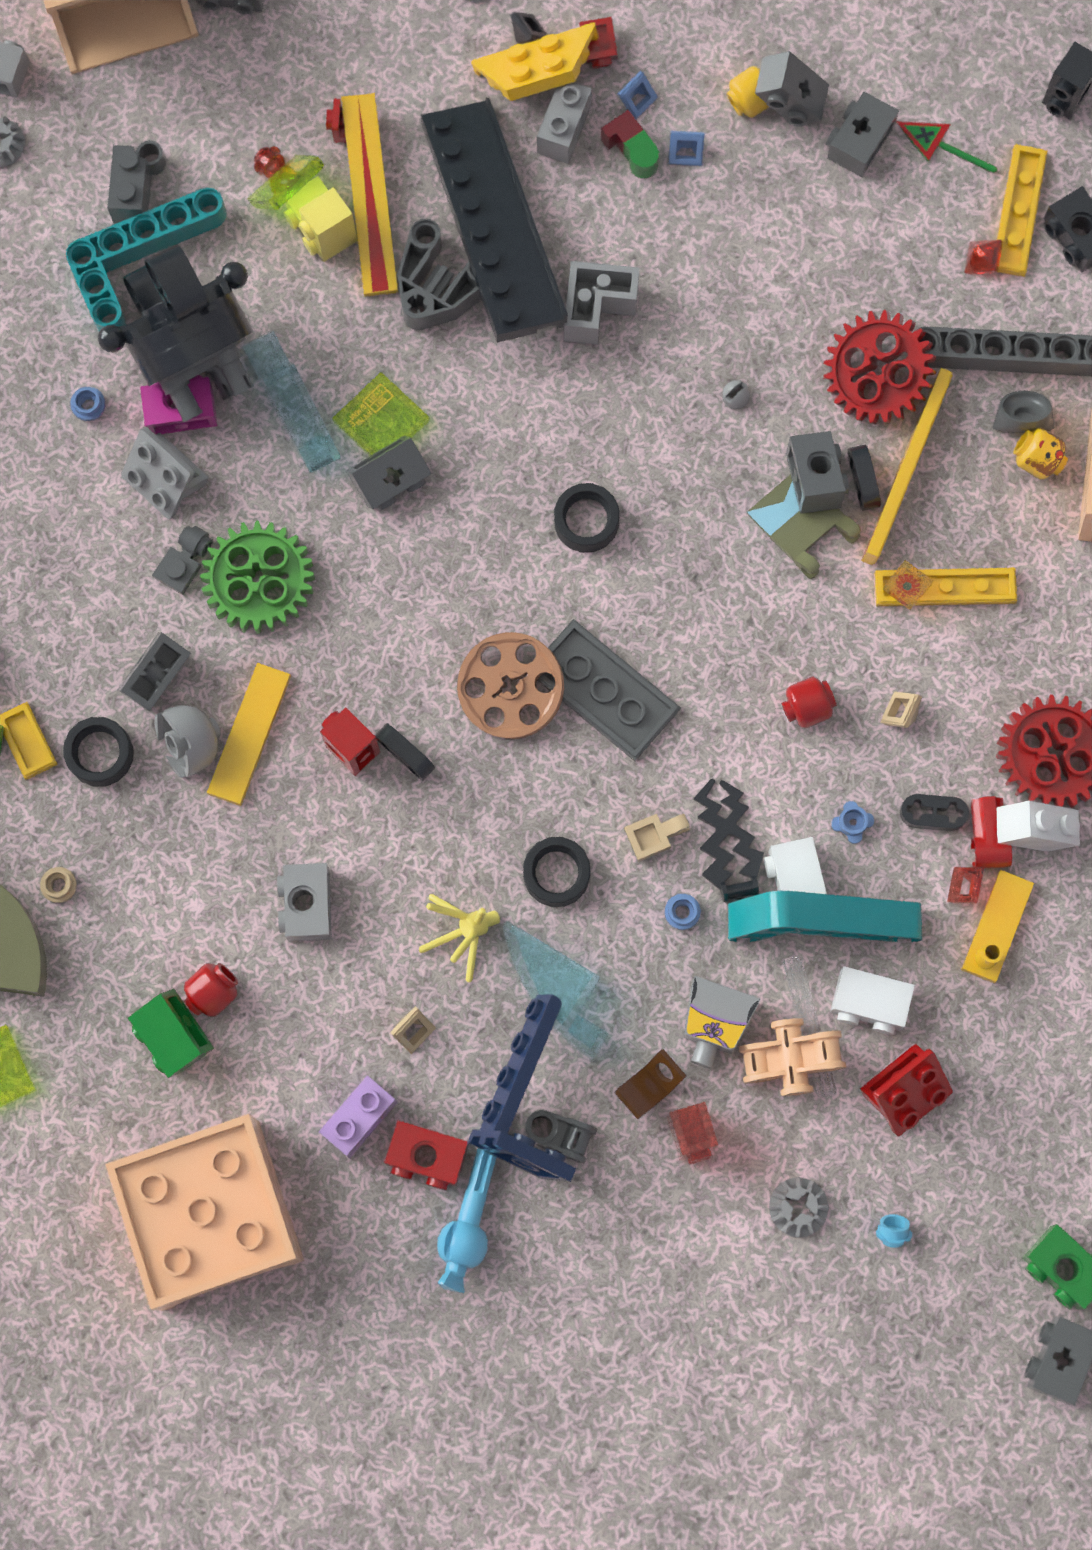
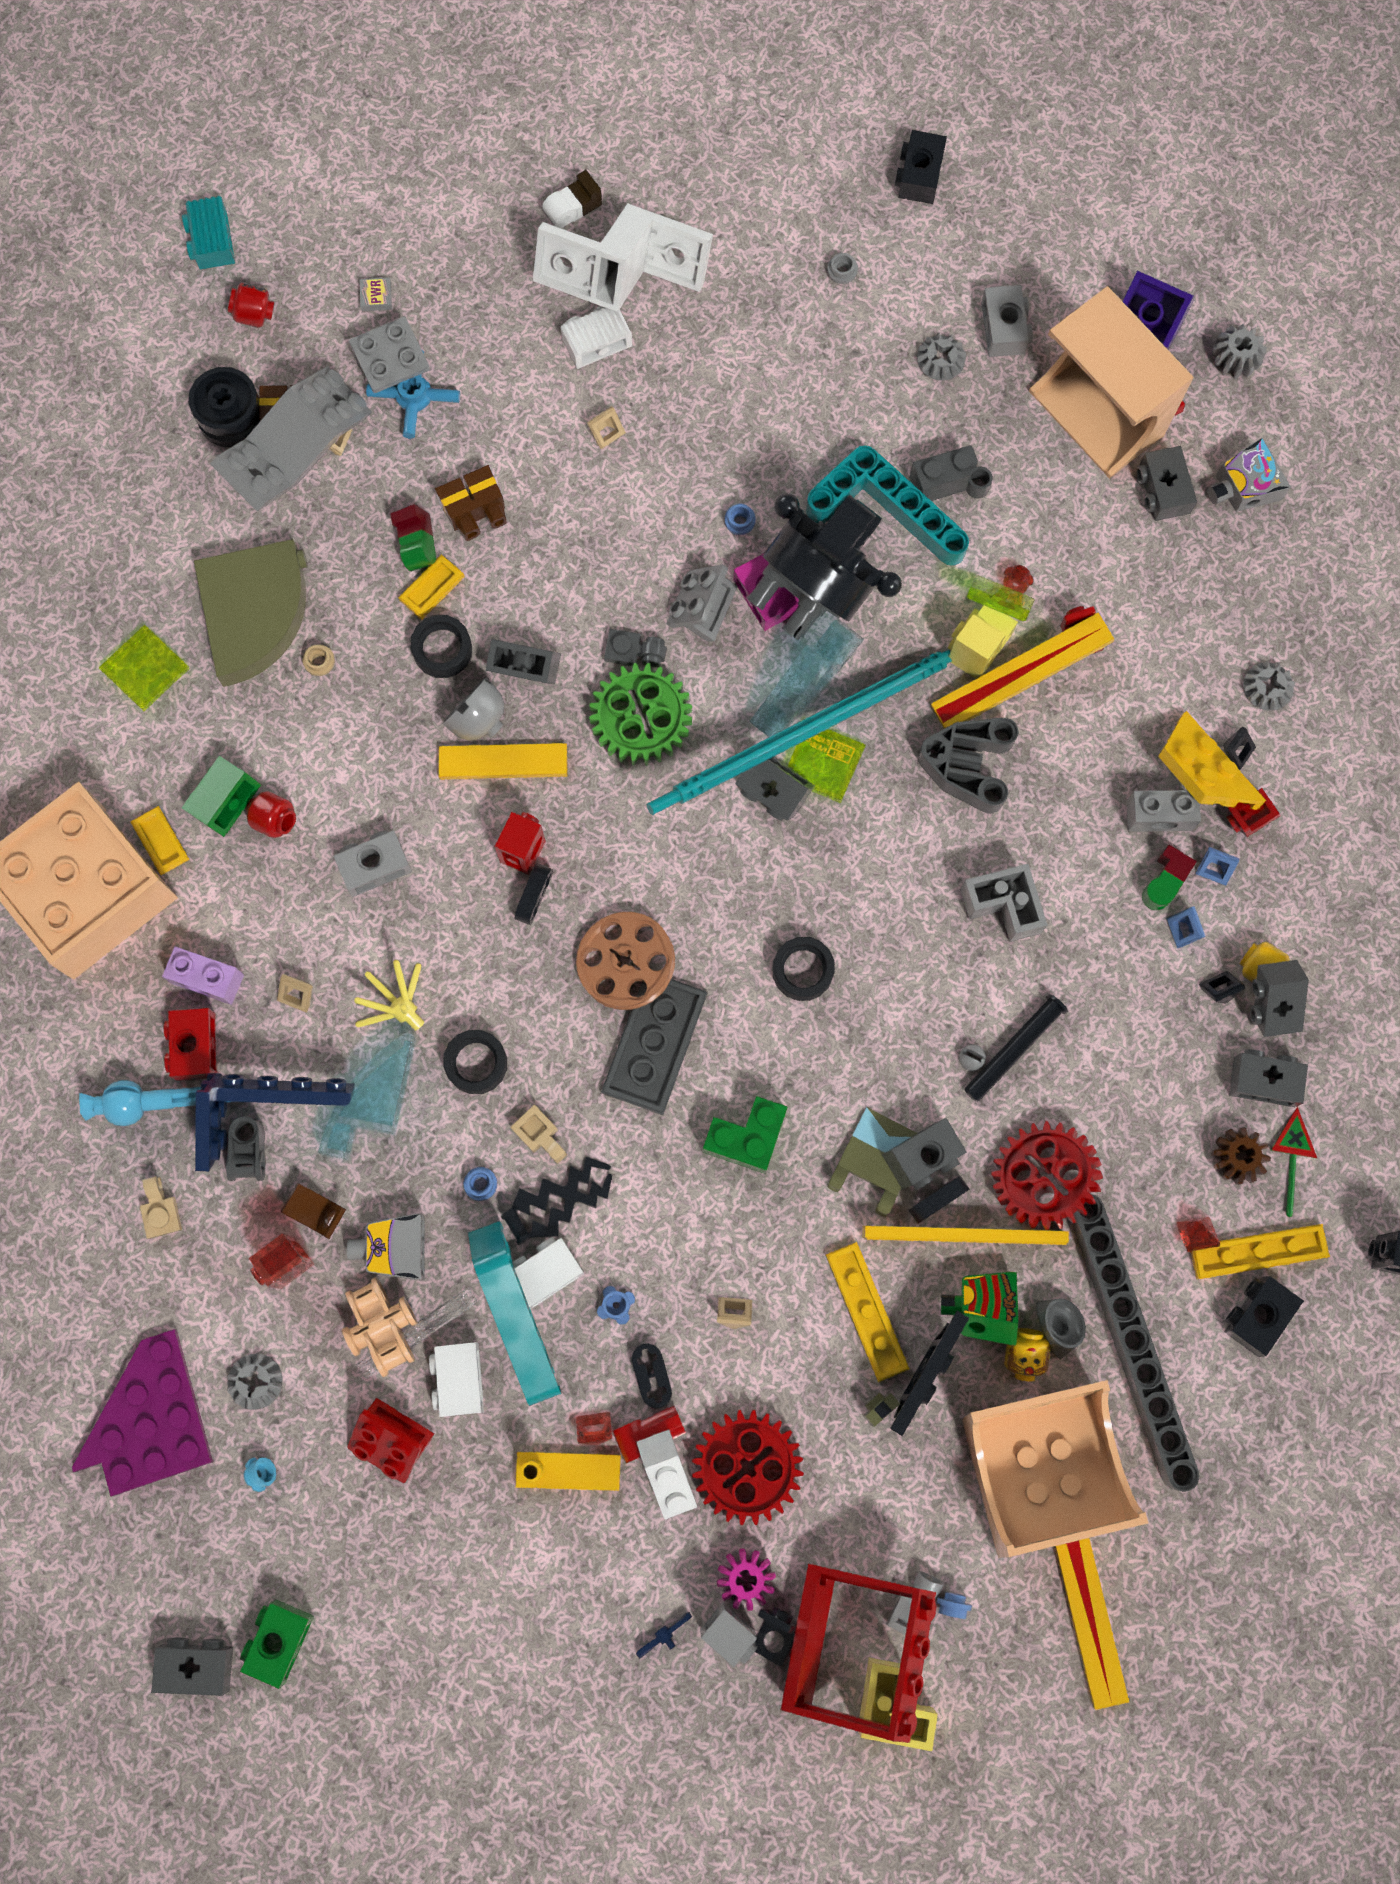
camera: 65 degrees right, 0 degrees up
(187, 1117) = (159, 840): none -> yellow tile
(348, 422) = (801, 731): none -> teal axle
(494, 220) = (1040, 784): black plate -> none
(592, 1247) = (161, 1214): none -> tan plate
(742, 350) = (1015, 1048): none -> black axle
(744, 631) = (751, 1144): none -> green brick
(761, 130) = (1226, 994): none -> black slope
(800, 1328) = (149, 1421): none -> magenta wing
(809, 702) = (708, 1225): red head -> none
(907, 585) = (852, 1275): clear yellow tile -> none
(927, 199) = (1243, 1168): none -> reddish brown gear
(985, 470) = (989, 1304): none -> green torso
(1027, 548) = (934, 1362): none -> black wing
(1043, 607) = (879, 1408): none -> olive plate

